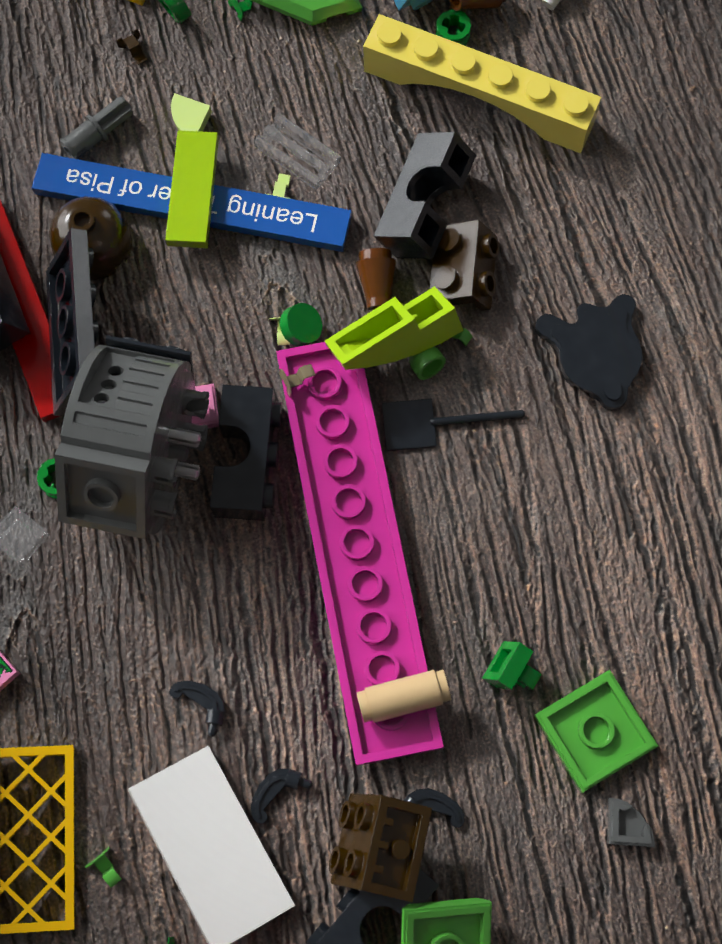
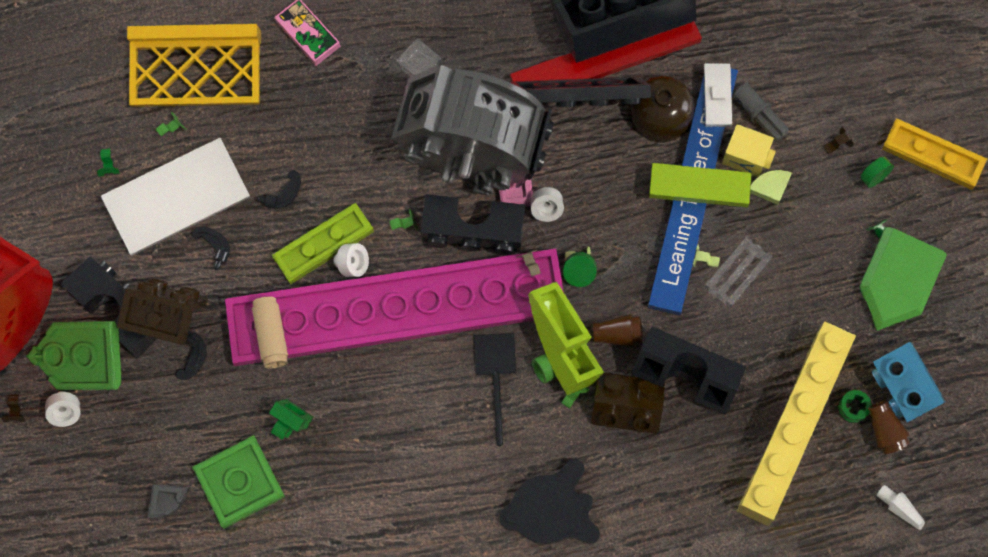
camera: 90 degrees right, 0 degrees up
(74, 173) = (717, 95): none -> white piece
(147, 138) = (749, 151): none -> light yellow brick
(216, 365) = (546, 204): none -> white tile
(241, 544) = (404, 223): none -> bright green piece
(271, 645) = (322, 243): none -> lime tile
(296, 603) = (352, 260): none -> white tile

